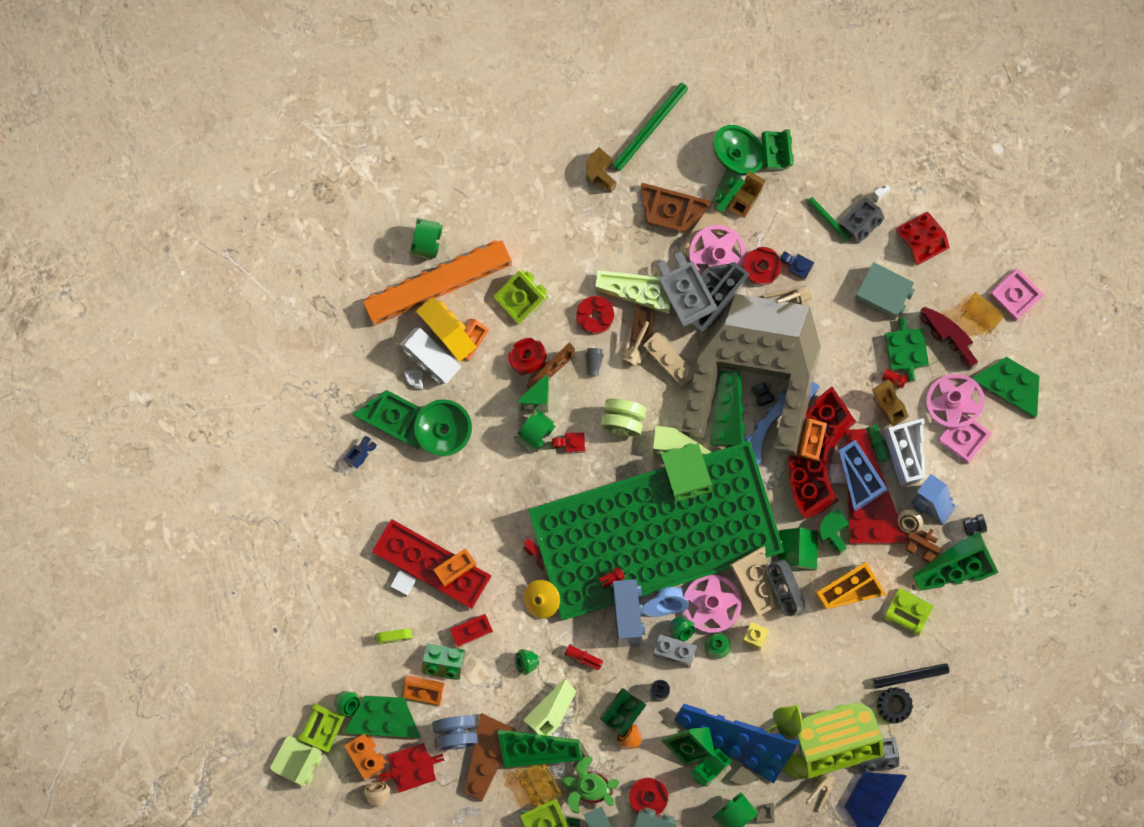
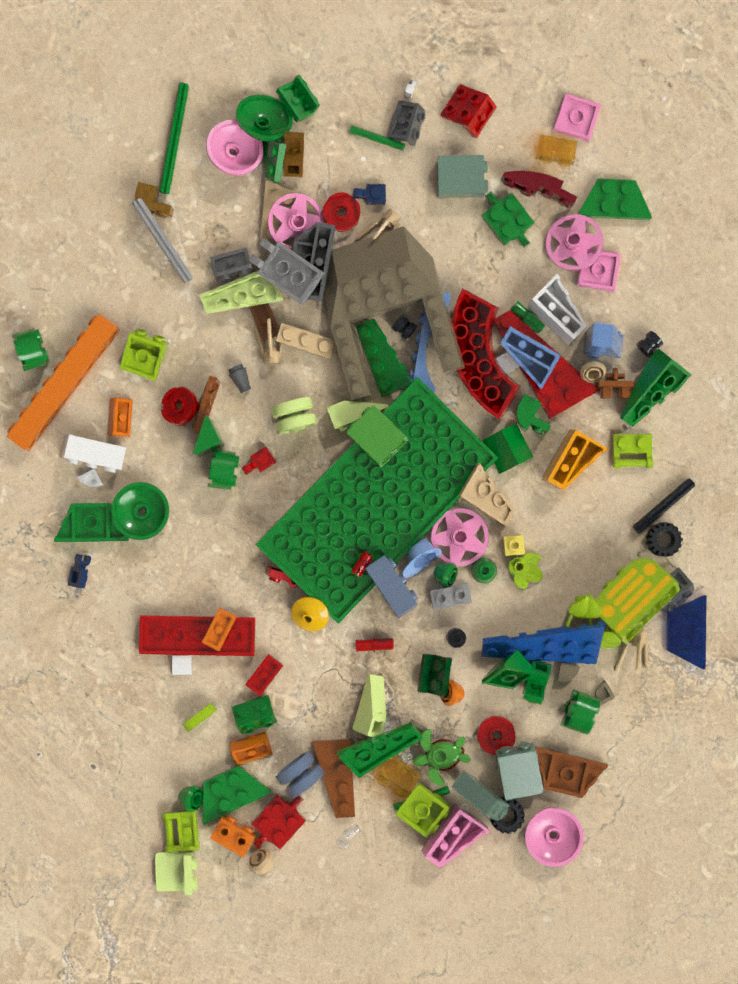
camera: 30 degrees left, 10 degrees up
(446, 328) = (93, 421): yellow wedge -> none
(526, 661) = (327, 676): green cone -> none
(591, 205) = (162, 240): none -> light grey axle
(596, 304) = (218, 346): red plate -> none
(640, 259) = (231, 264): none -> flat silver bracket
(672, 209) = (233, 203): dark orange wing -> none
(696, 150) = (230, 137): none -> bright pink dish
(757, 667) = (529, 570): none -> lime plate
(777, 582) = (513, 480): dark grey beam -> none
(811, 439) = (470, 346): orange slope -> none
(889, 404) = (519, 276): pearl gold brick -> none
(895, 378) = (511, 251): red pin -> none

